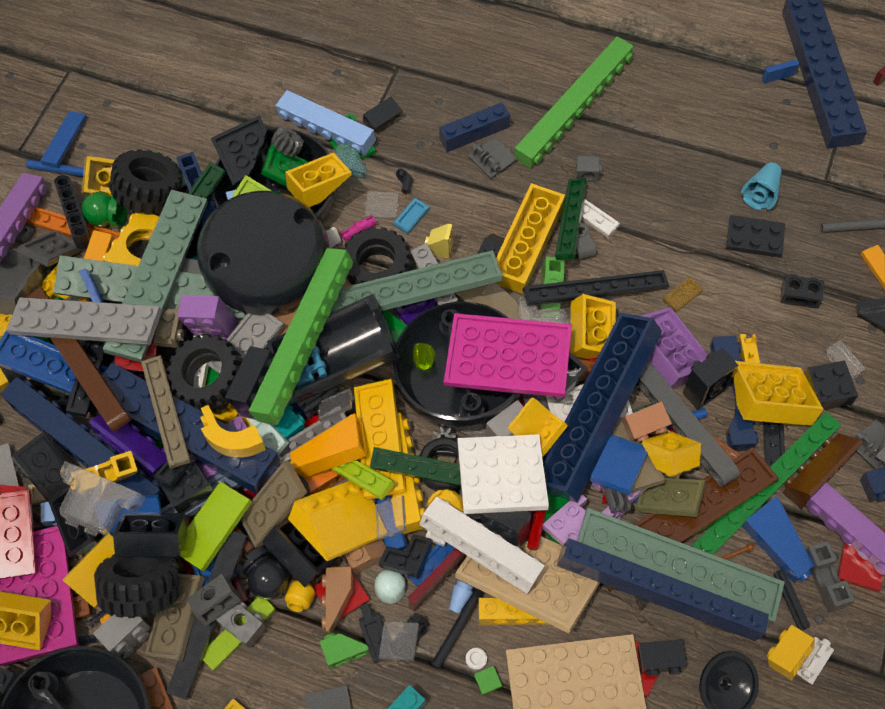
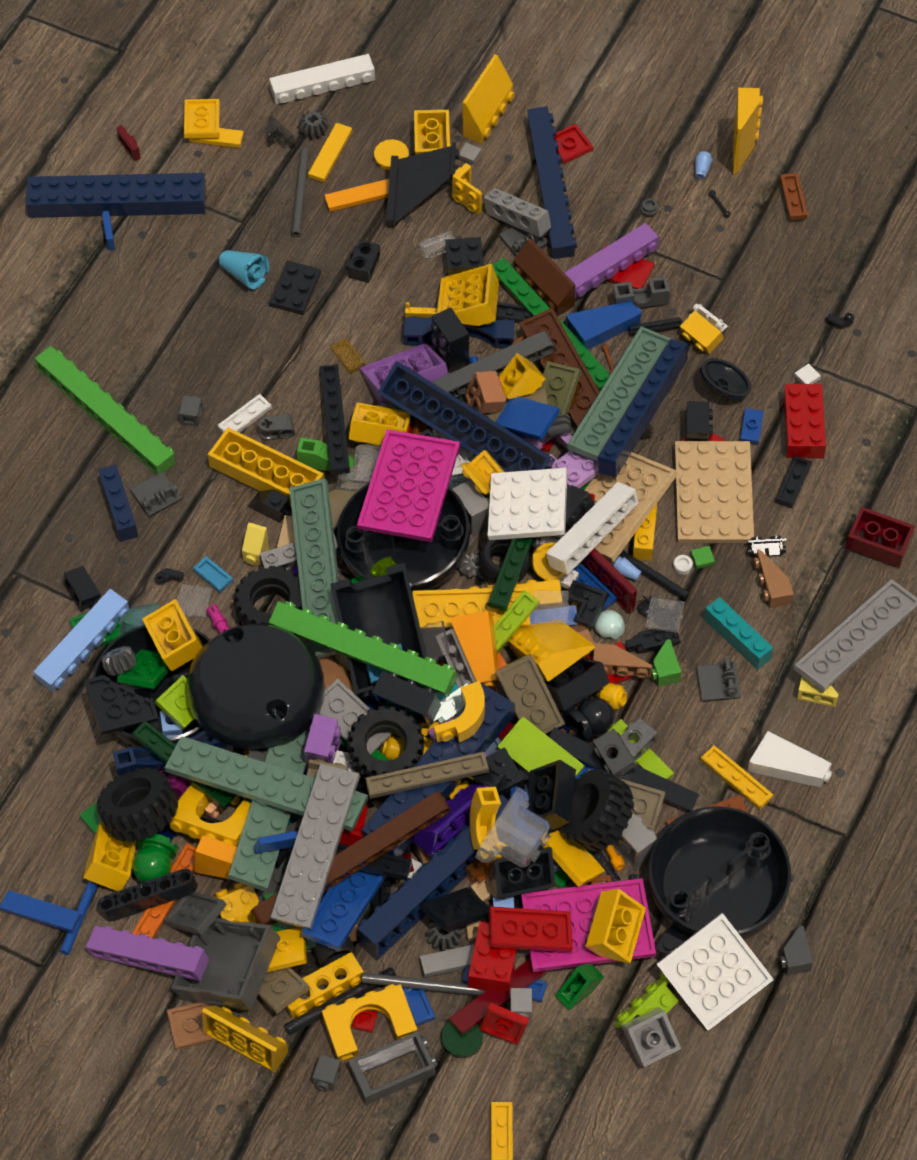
camera: 85 degrees left, 5 degrees down
(571, 219) = (254, 427): dark green tile -> none

